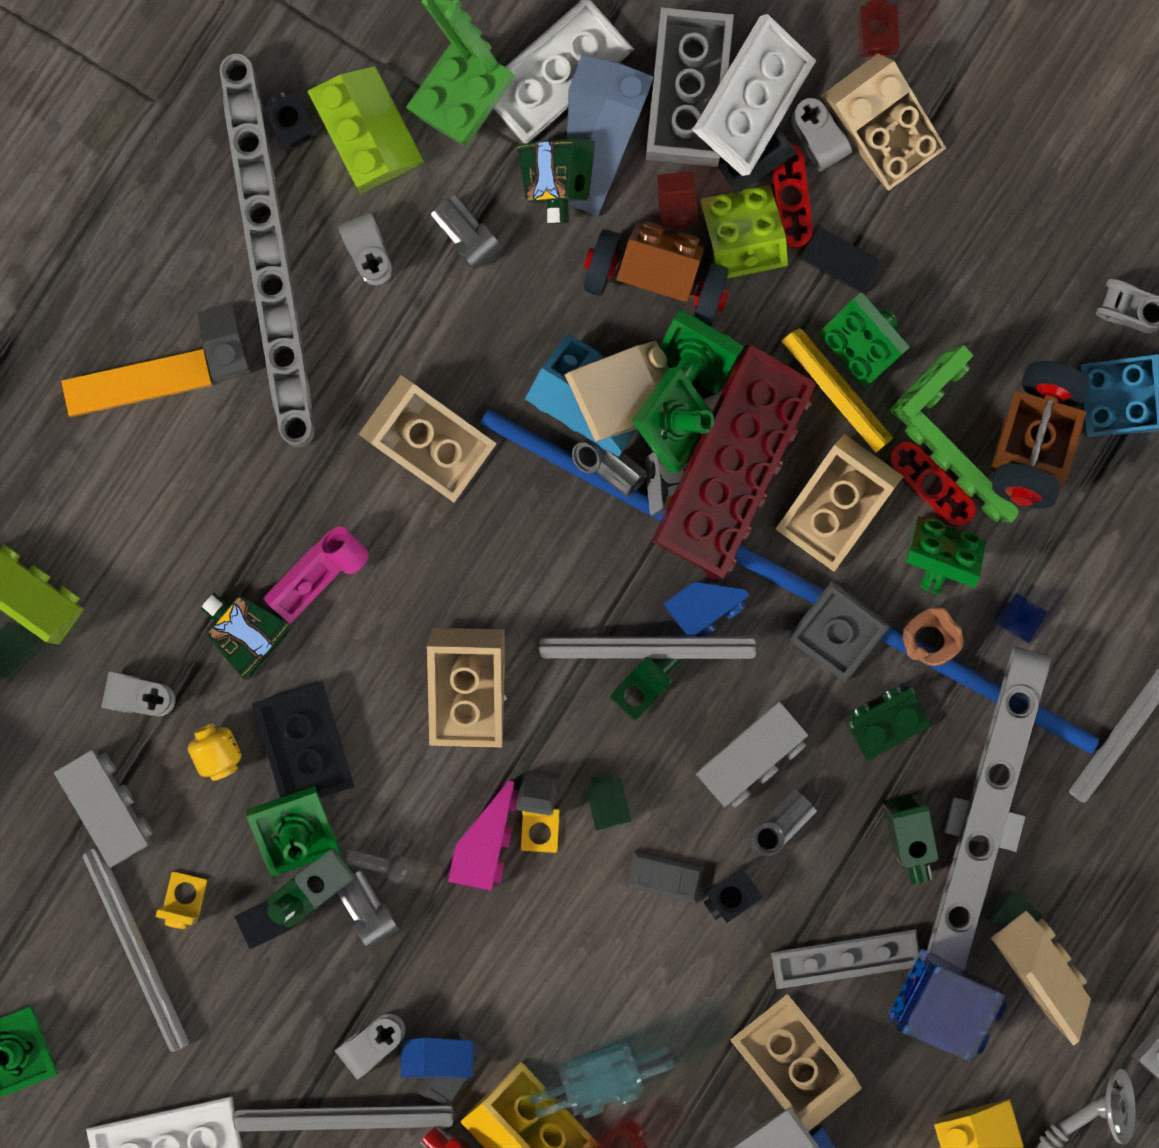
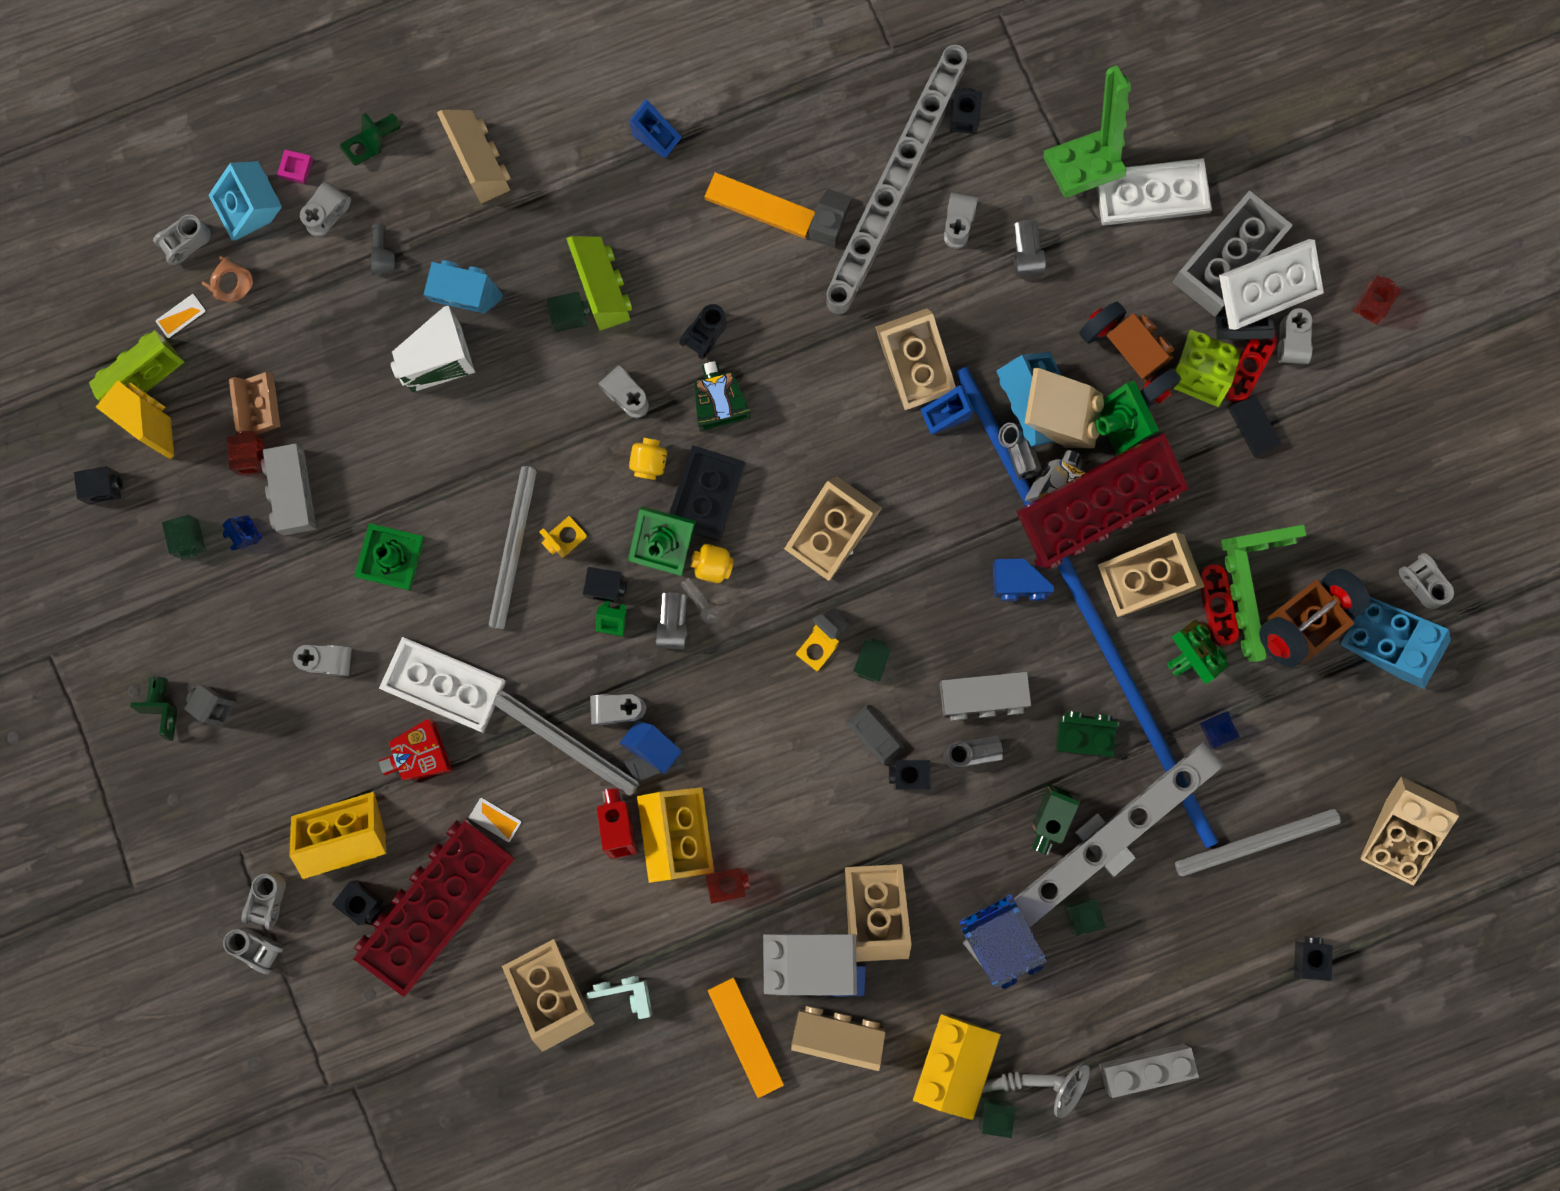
camera: 40 degrees right, 5 degrees down
(104, 807) = (556, 446): light grey brick -> none
(176, 570) = (701, 335): none -> black piece
(296, 898) = (632, 582): dark green torso -> none
(299, 953) = (611, 620): none -> green tile
(315, 570) = (789, 391): dark pink plate -> none
(364, 817) = (712, 563): none -> yellow head
(365, 128) = (1009, 146): lime slope -> none
(478, 851) = (771, 632): dark pink slope -> none
(500, 474) = (948, 410): none -> blue slope
(557, 174) = (1112, 250): torso -> none
(601, 1079) = (745, 831): clear light blue brick -> none
(604, 109) = (1163, 235): sand blue wedge -> none
(648, 647) = (966, 580): light grey axle -> none
(651, 678) = (953, 601): dark green bracket -> none
(677, 199) = (1176, 317): clear red brick -> none
(682, 420) = (1087, 449): green plate -> none
(837, 389) = (1198, 503): yellow tile -> none
(838, 631) = (1095, 655): dark grey tile -> none
(845, 958) = (955, 868): light grey tile -> none
(867, 333) = (1243, 481): green plate -> none
(883, 120) = (1343, 358): tan slope -> none
(940, 619) = (1167, 694): nougat piece -> none
(1045, 973) = (1082, 966): tan slope -> none

